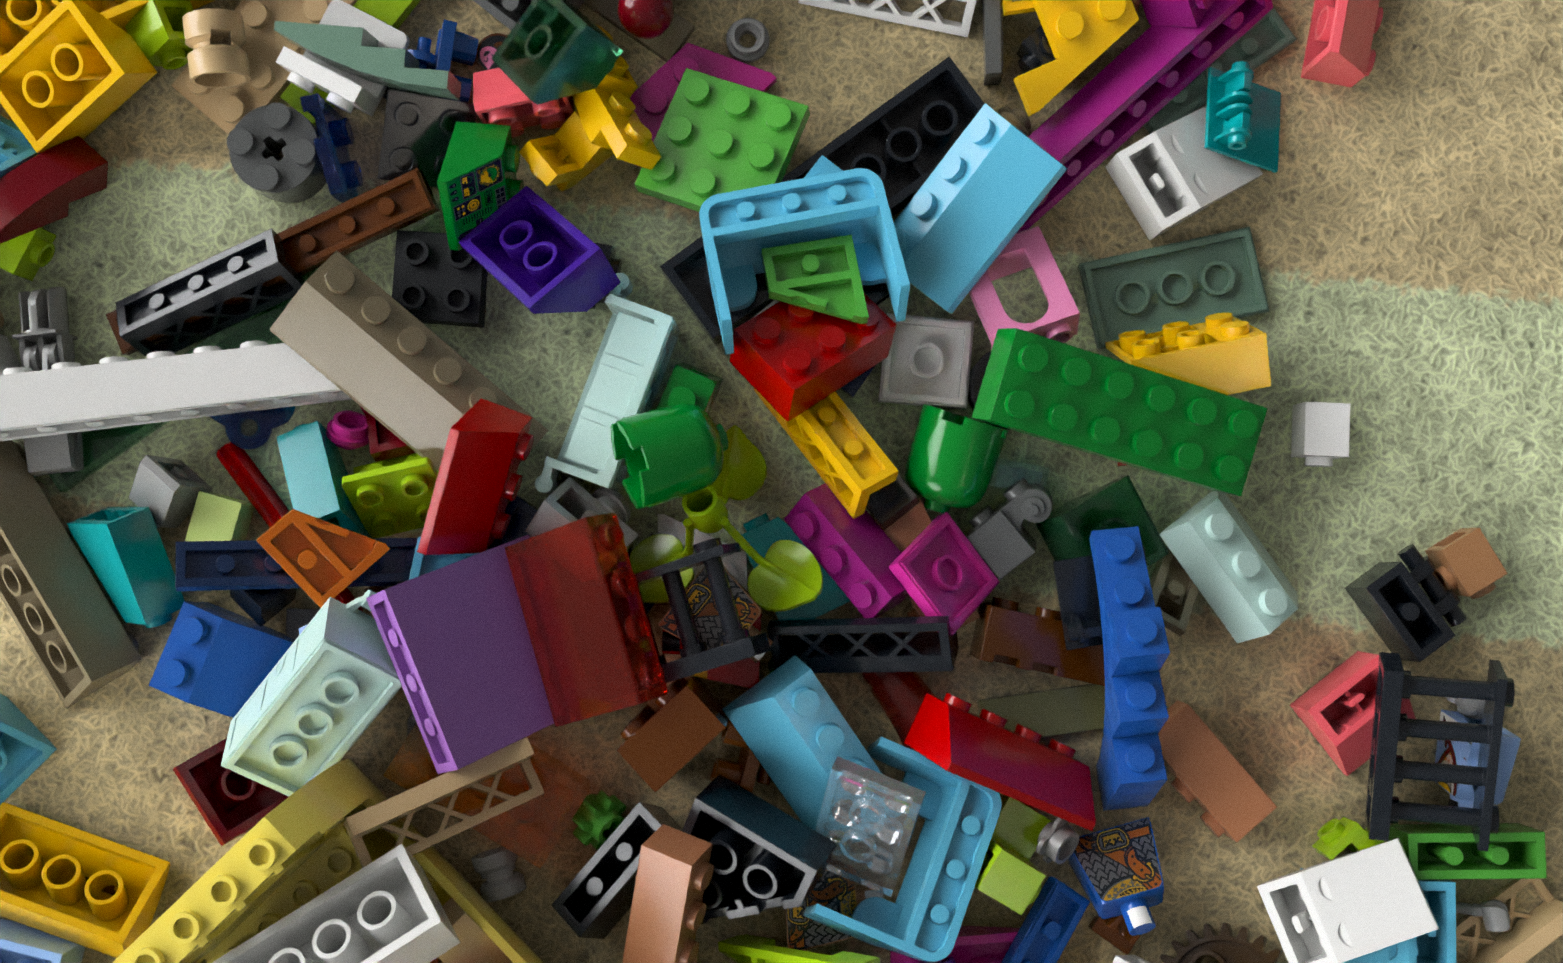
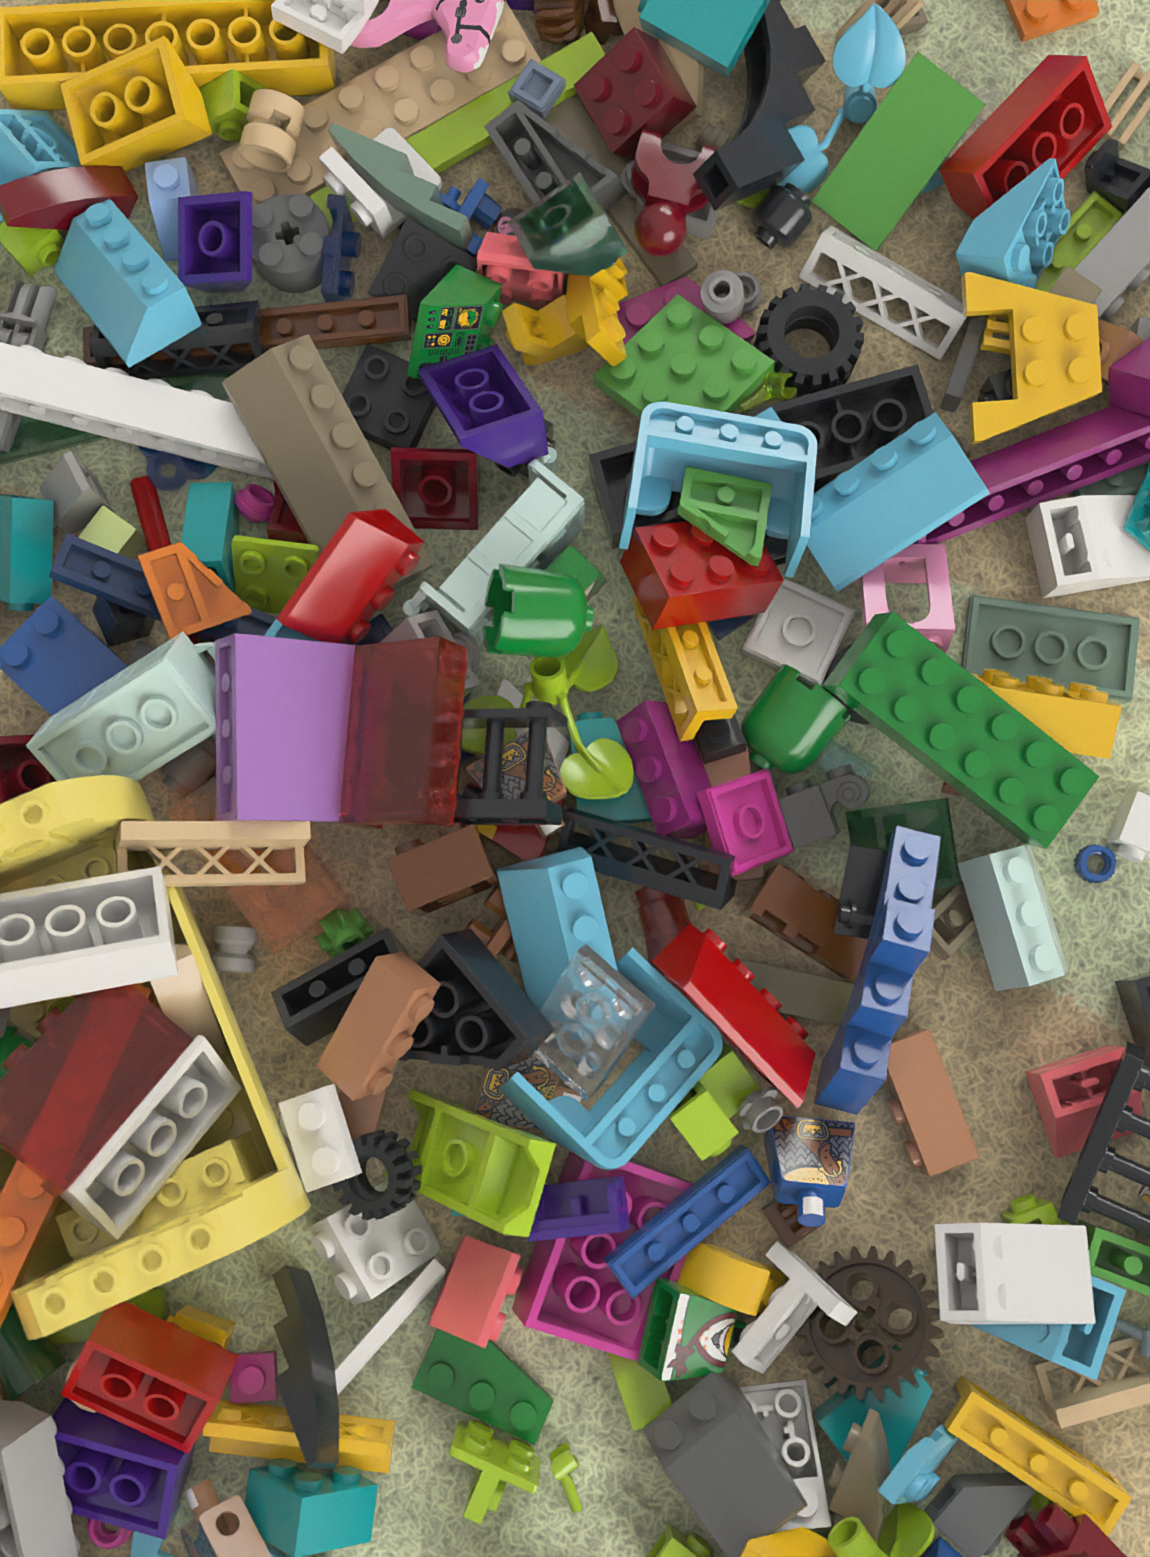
camera: 25 degrees right, 5 degrees down
(130, 262) = (124, 284): none -> medium azure slope
(150, 159) = (165, 184): none -> light blue slope
(204, 183) = (215, 241): none -> dark purple slope
(391, 721) = (191, 768): none -> light grey brick
(521, 351) = (437, 486): none -> dark red slope
(742, 66) = (726, 308): none -> light grey brick
(816, 131) = (772, 388): none -> clear neon green hand
(840, 35) = (820, 313): none -> black tyre
(1301, 488) = (1083, 870): none -> blue axle

